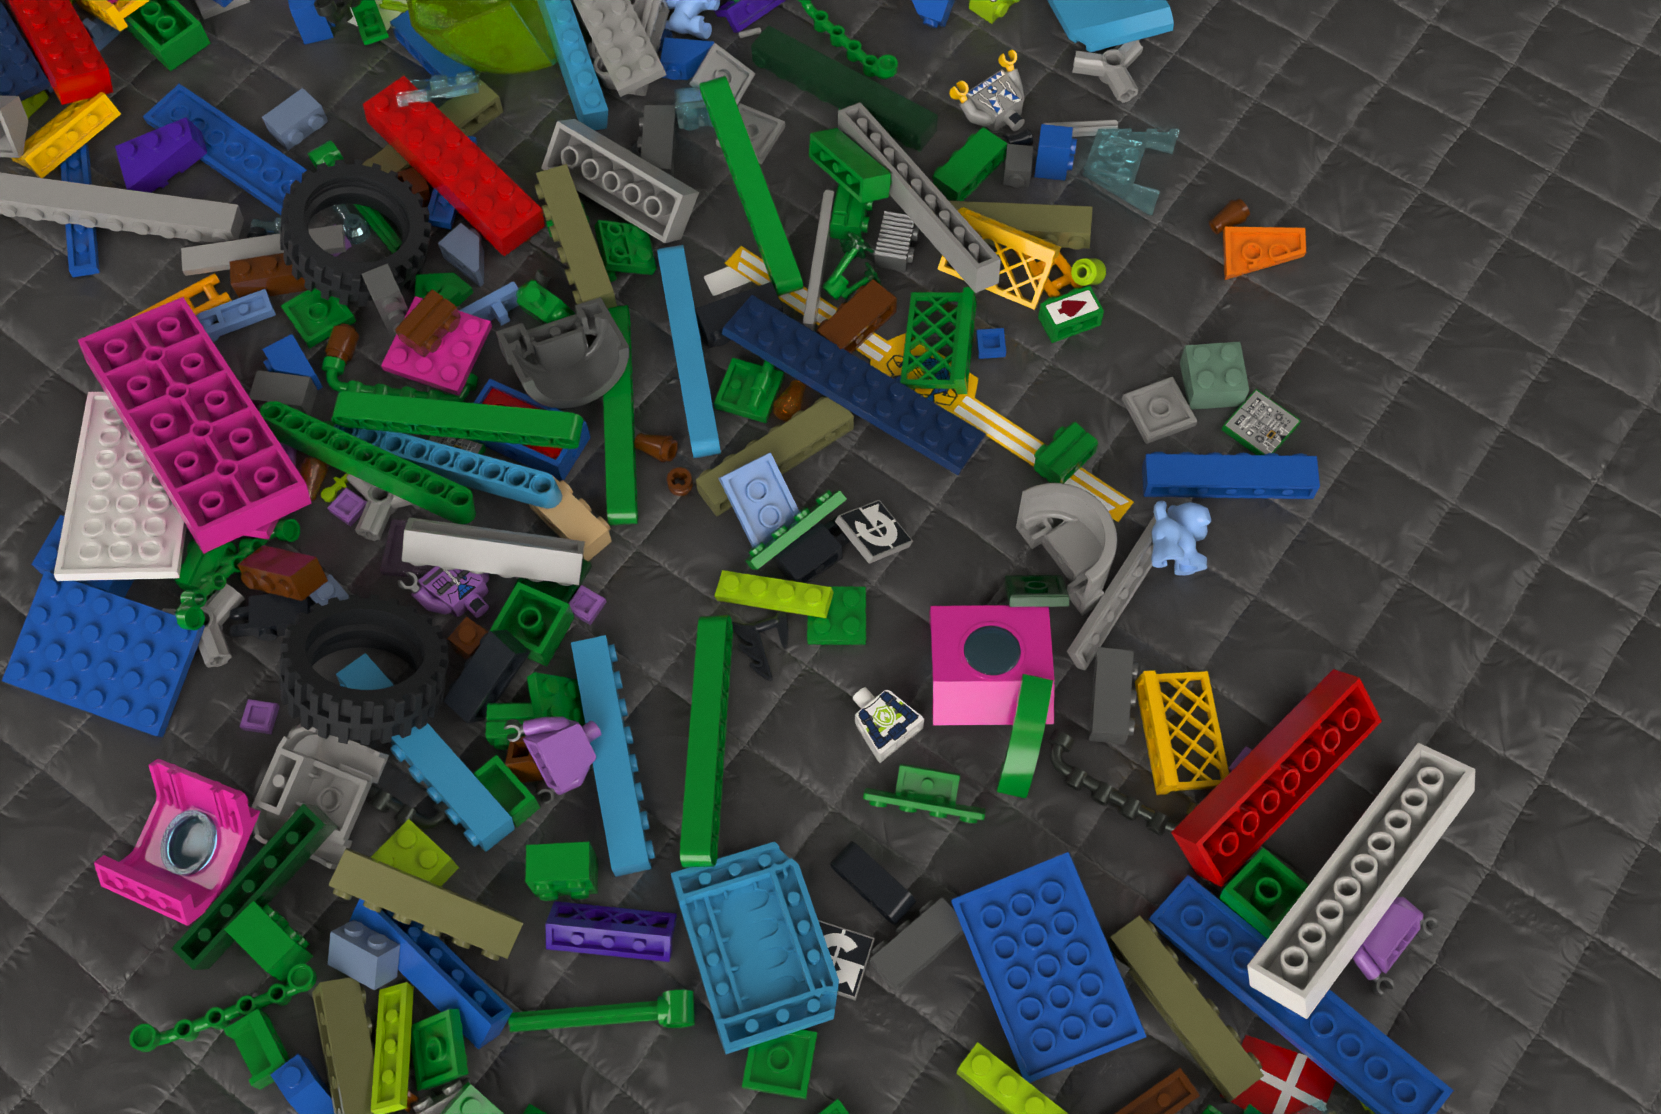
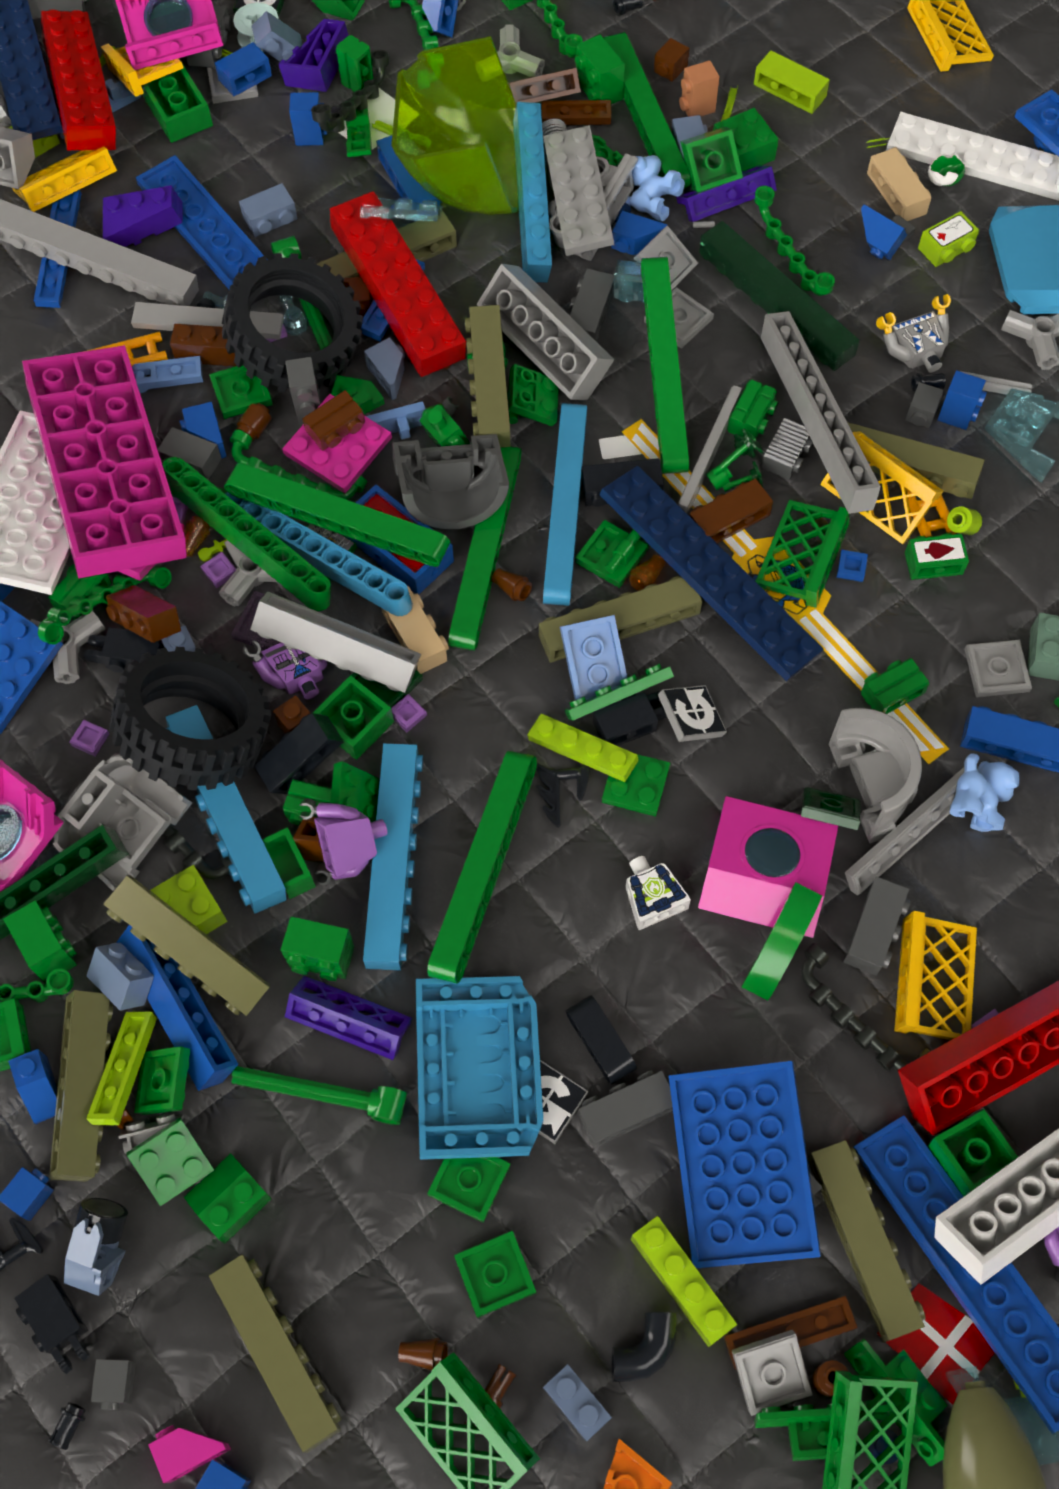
camera: 15 degrees right, 0 degrees up
(682, 474) = (519, 627): reddish brown bush -> none
(849, 165) = (762, 367): green brick -> none
(928, 791) = (674, 967): green bracket -> none
(970, 165) = (878, 394): green brick -> none

